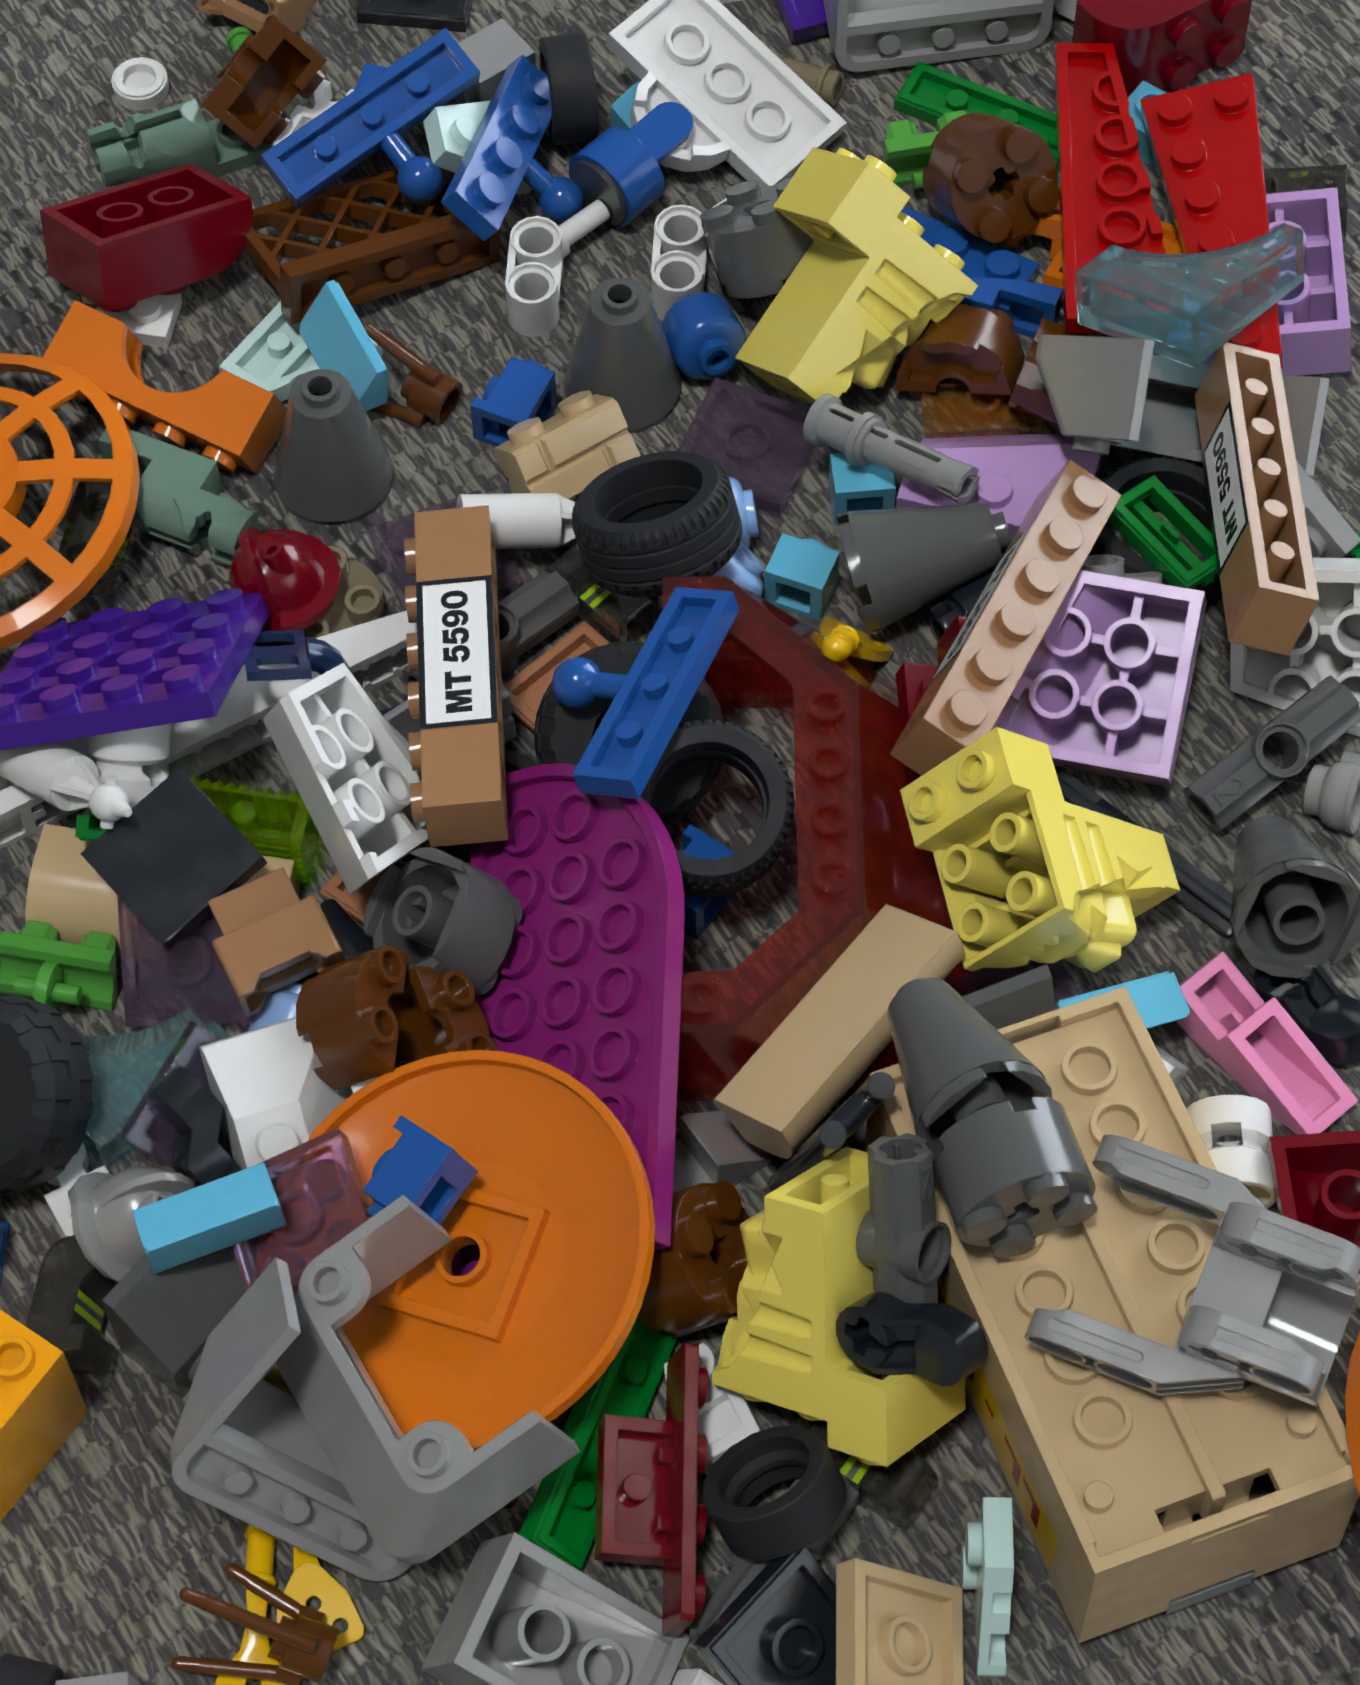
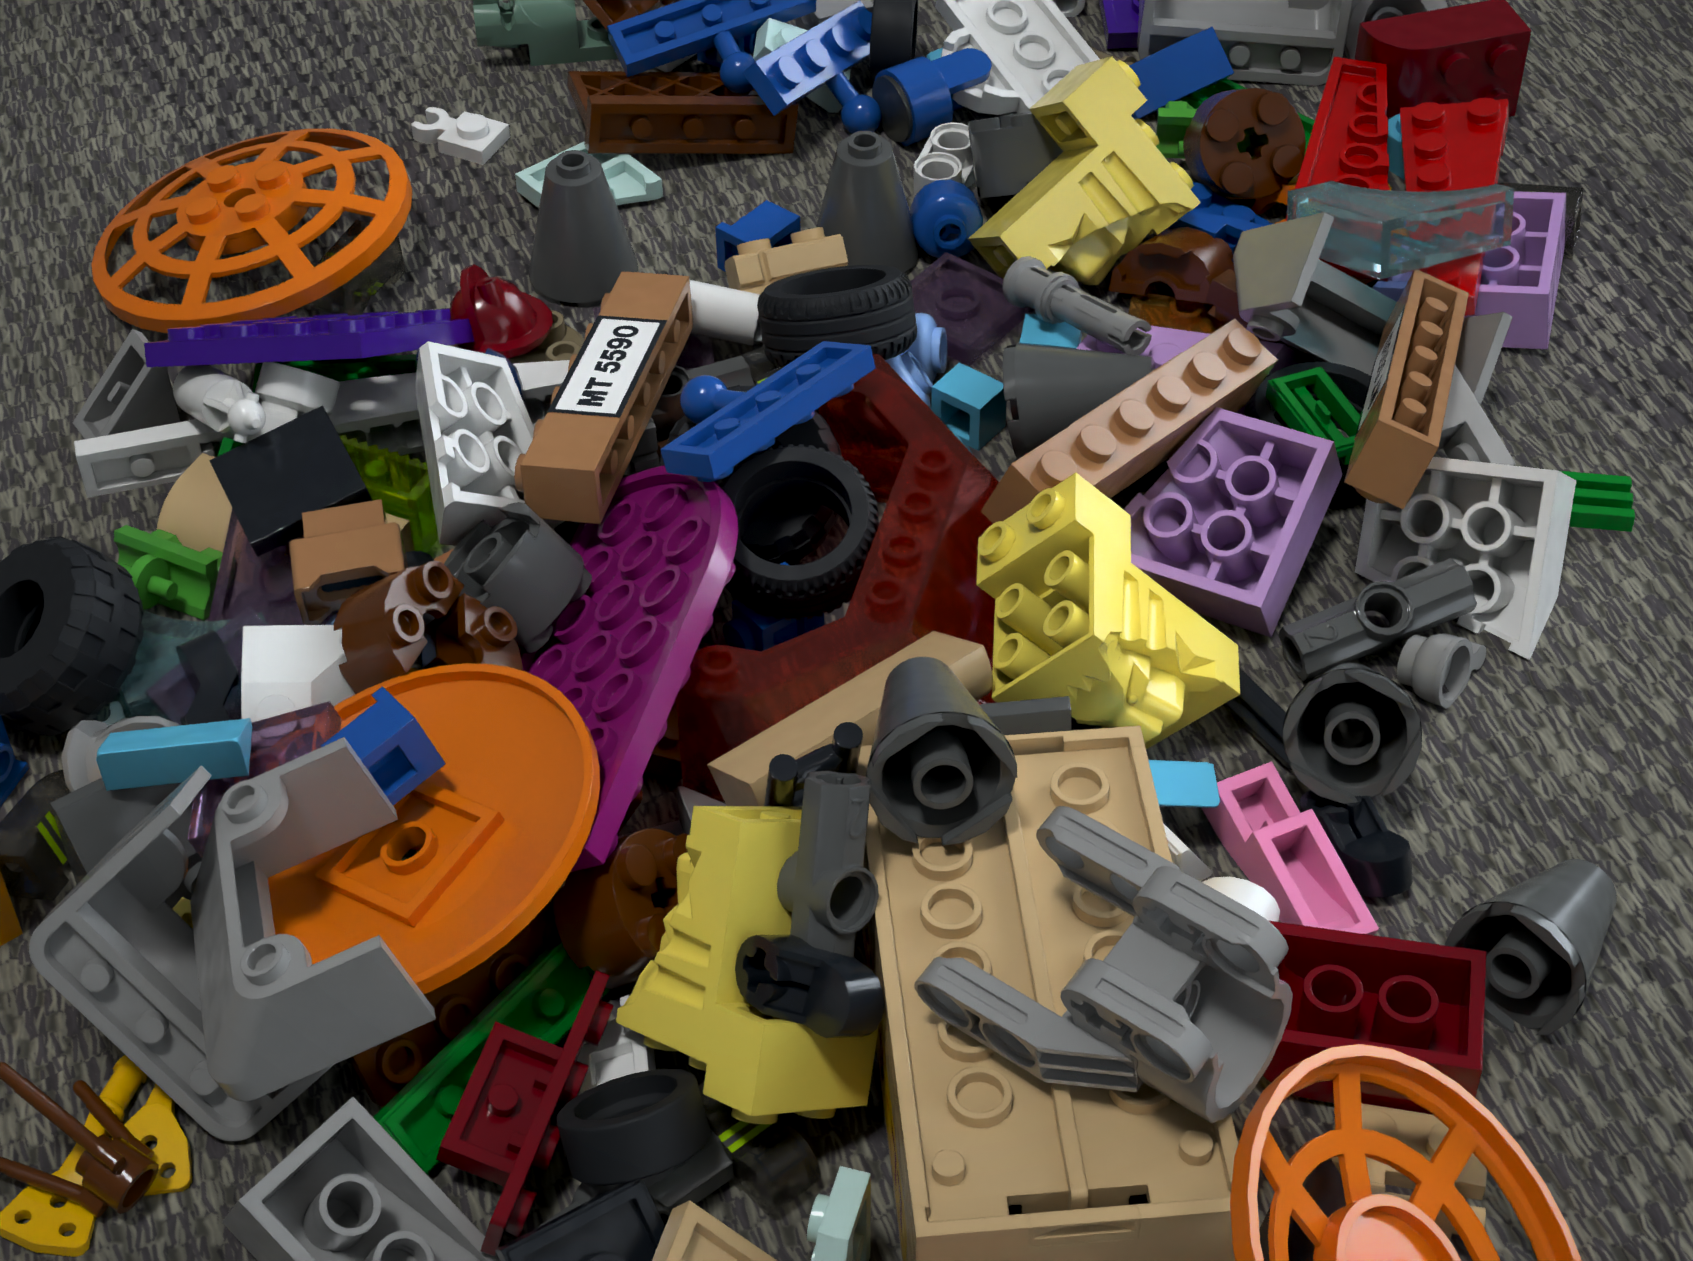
camera: 15 degrees right, 15 degrees down
(146, 236) = (489, 72): dark red brick -> none
(185, 500) = (435, 250): sand green plate -> none
(225, 416) = (495, 205): orange arch -> none
(343, 345) = (626, 171): medium azure slope -> none
(427, 389) = (685, 218): reddish brown plant -> none
(537, 267) = (812, 150): white beam -> none
(843, 640) = (978, 435): yellow piece -> none
(883, 80) = (1181, 70): none -> blue slope
(1013, 1175) = (952, 834): dark grey brick -> none

